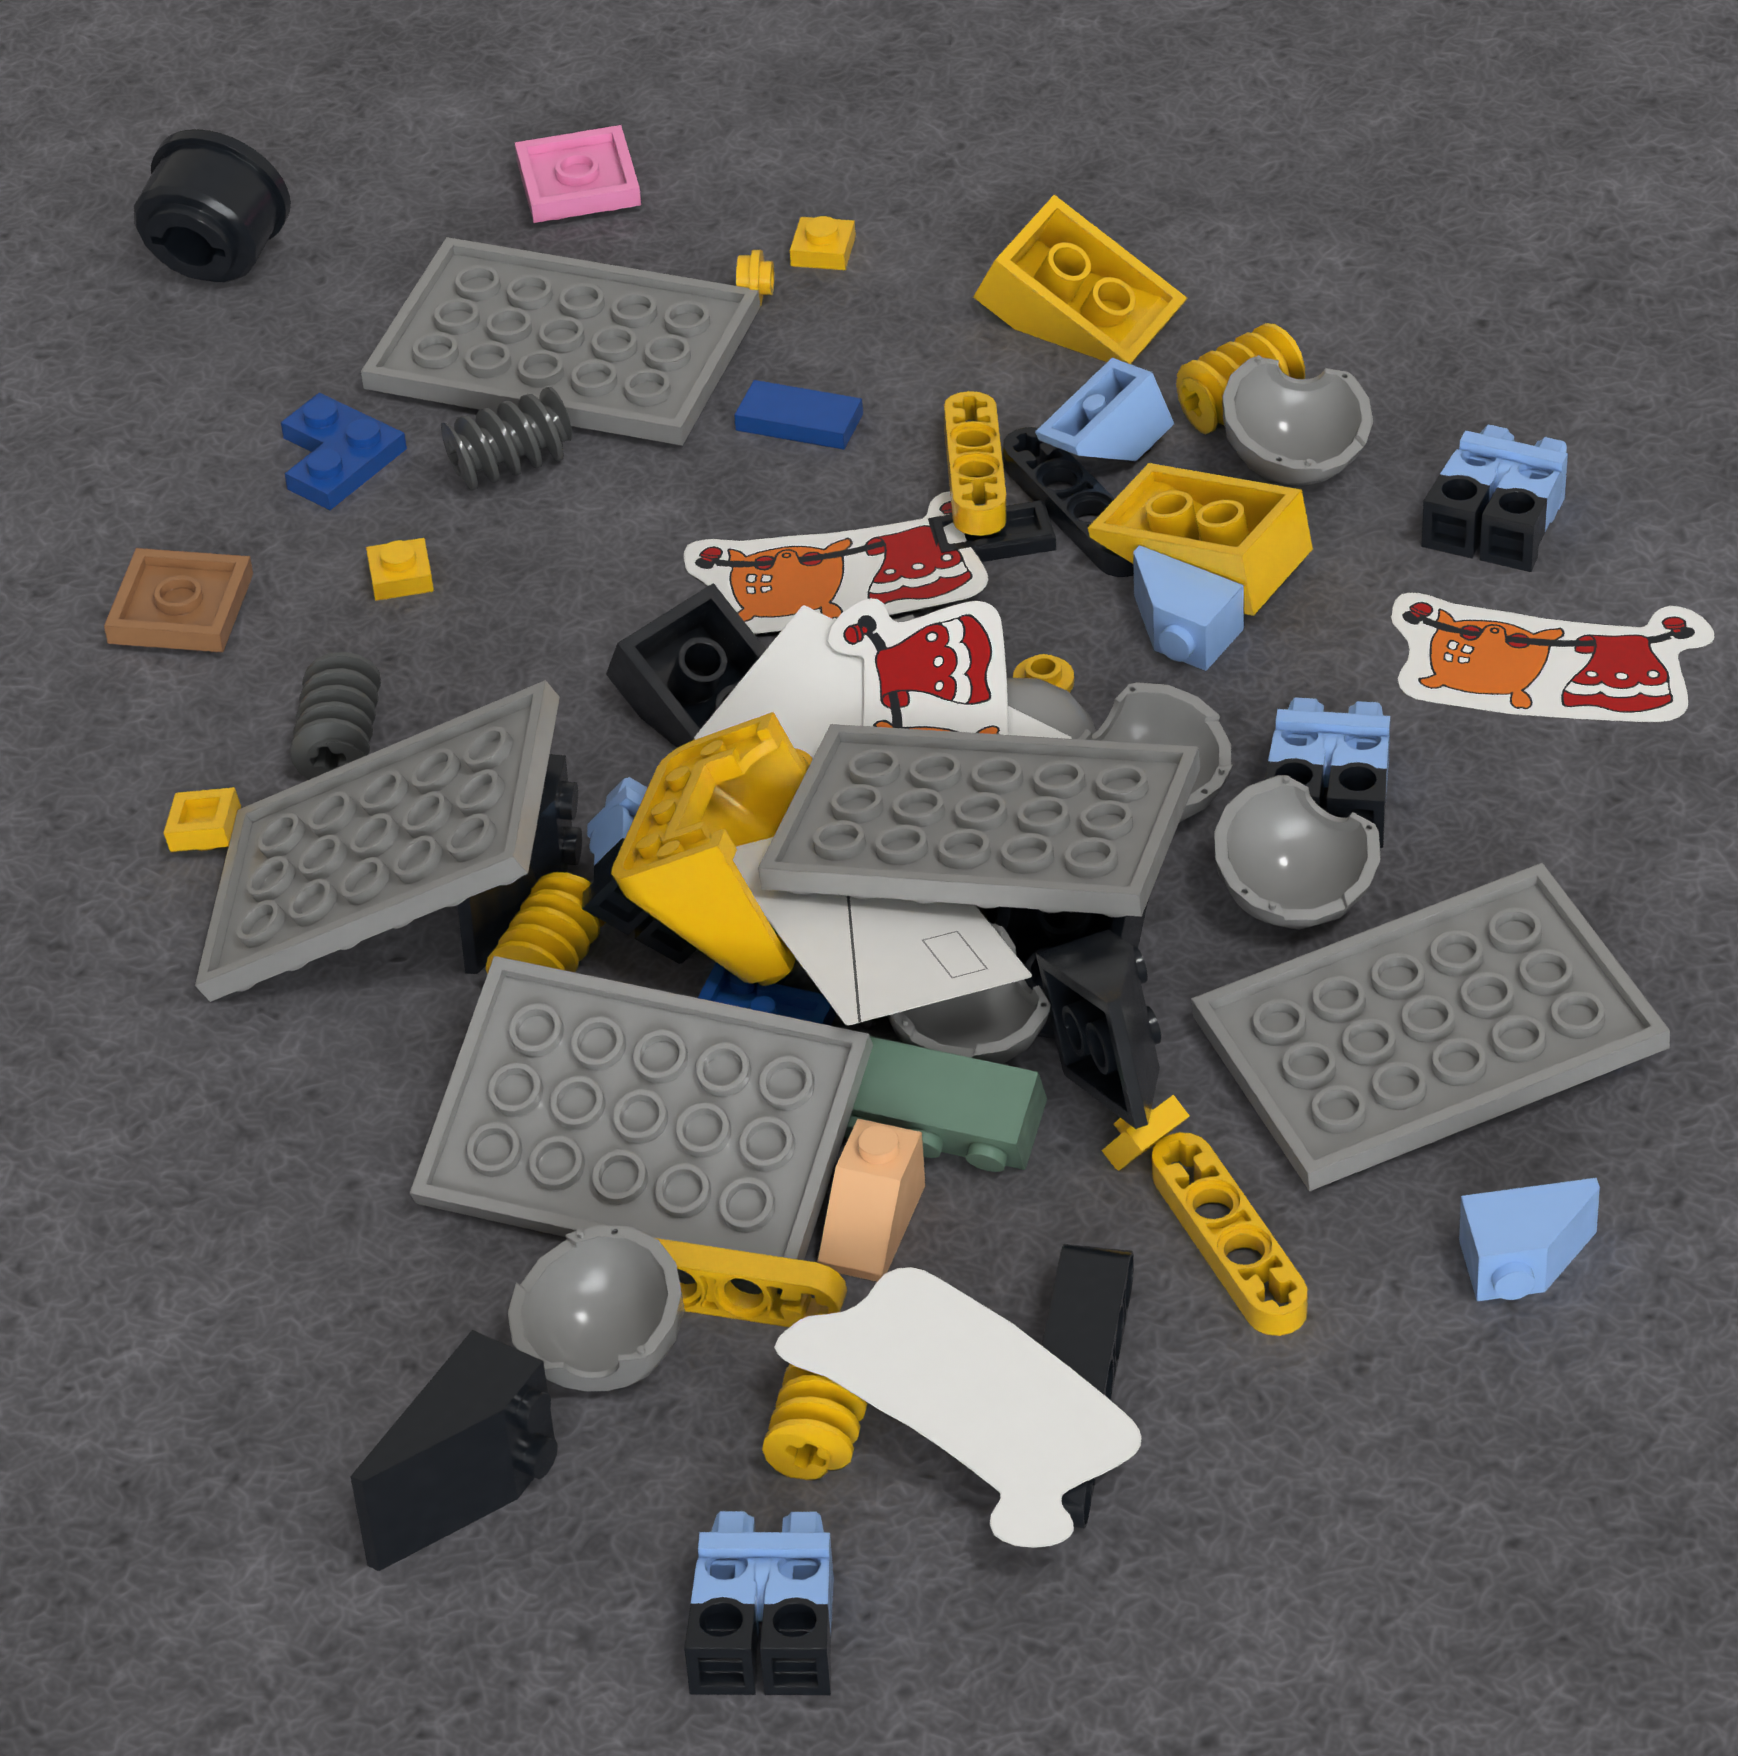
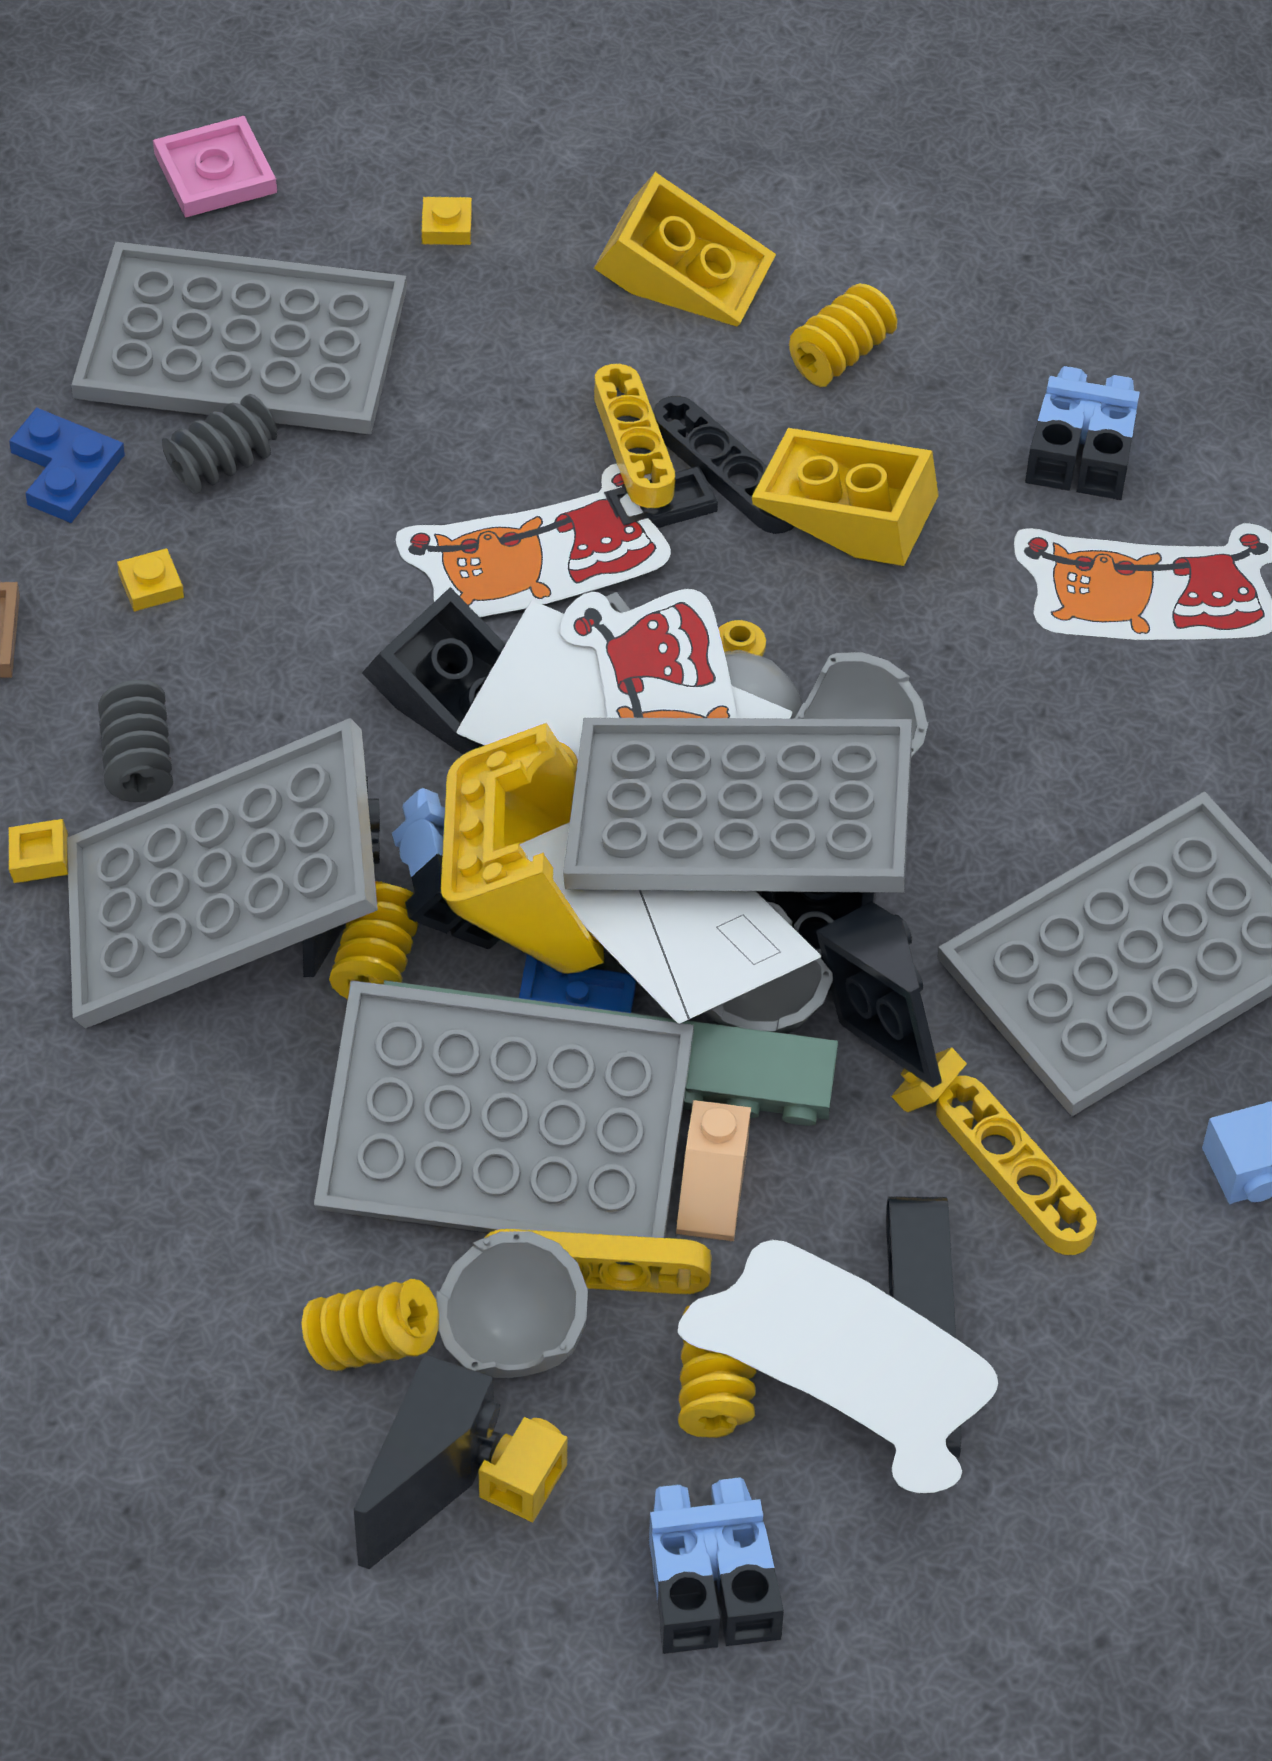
camera: 15 degrees left, 10 degrees up
(434, 1310) = (371, 1325): none -> yellow piece
(575, 1481) = (524, 1468): none -> yellow brick
(755, 273) = (399, 259): yellow plate -> none
(799, 414) = (466, 395): blue tile -> none
(1111, 415) = (744, 383): light blue slope -> none
(1186, 608) = (845, 564): light blue slope -> none
(1291, 857) = (999, 807): light grey cylinder -> none
(1294, 426) = (905, 380): light grey cylinder -> none
(1335, 753) = (998, 696): light blue hips -> none

